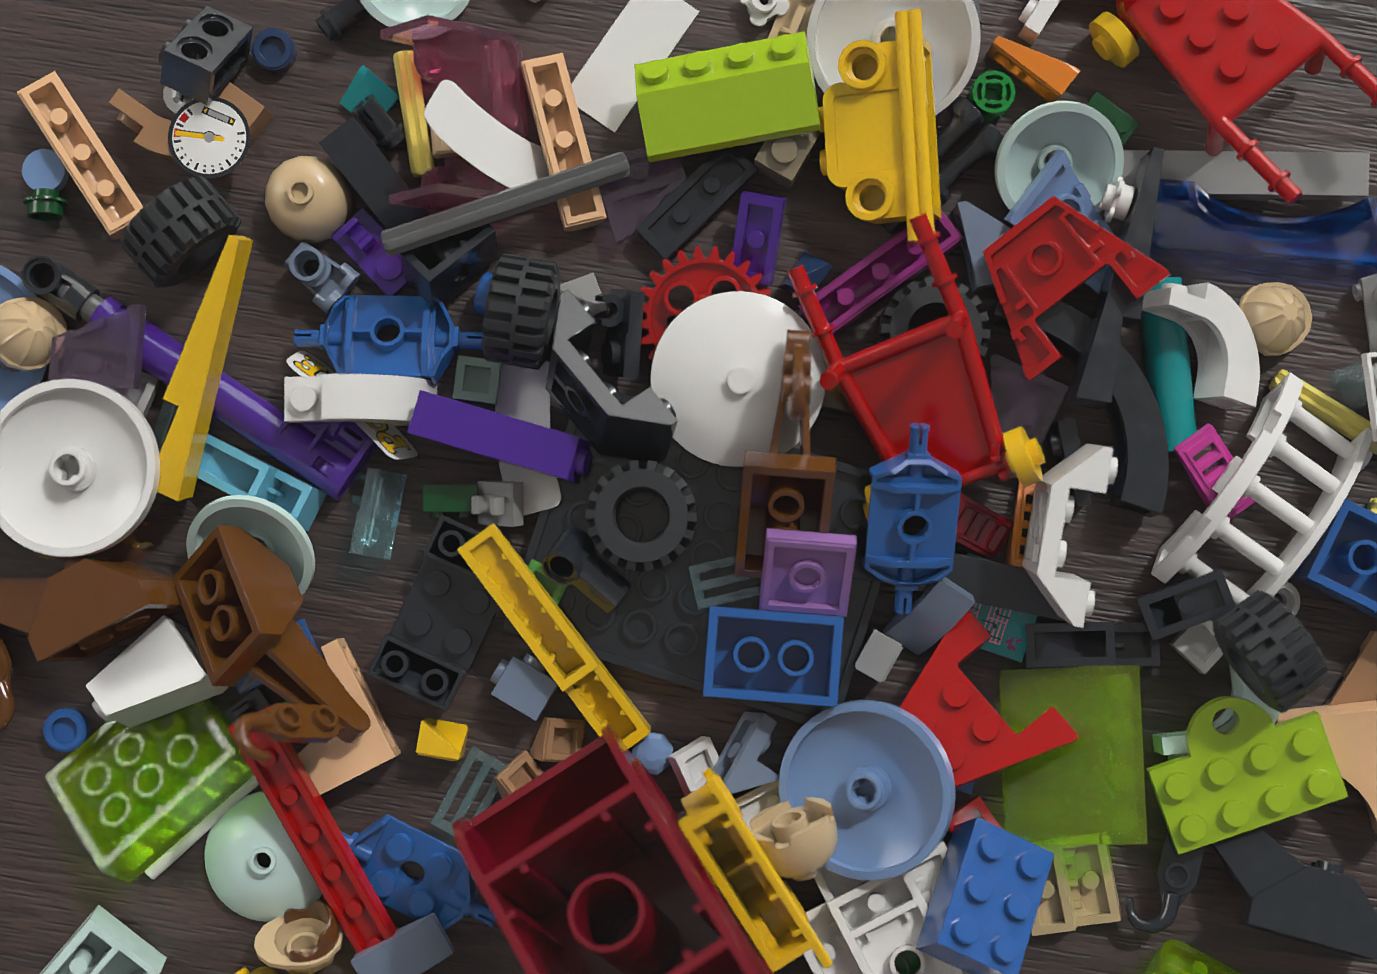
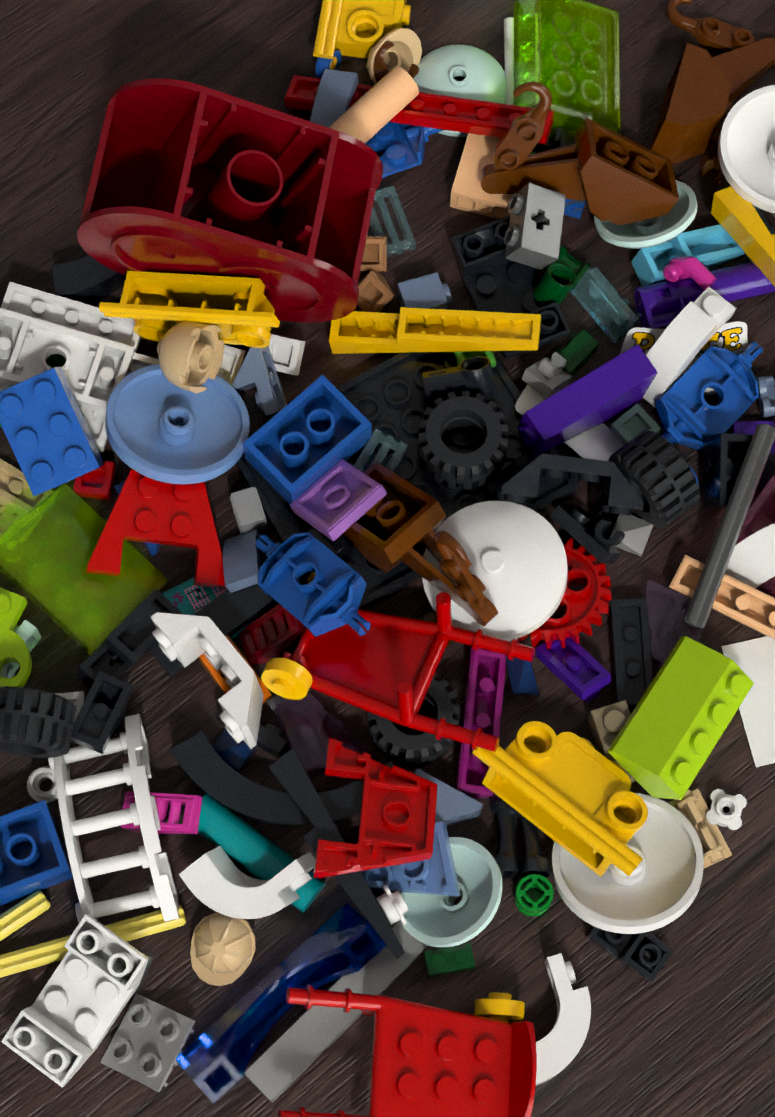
camera: 130 degrees right, 15 degrees down
(66, 729) = (634, 44): blue tile -> none
(153, 677) = (625, 101): white slope -> none
(275, 459) = (688, 268): none -> dark pink arm
(346, 638) = (534, 226): none -> brick
(390, 577) = (559, 278): none -> dark green piece
(403, 906) = (378, 105): none -> light nougat brick
(442, 739) = (436, 229): yellow slope -> none
(653, 752) = (316, 337): medium blue tile -> none
(1034, 69) = (519, 942): orange slope -> none

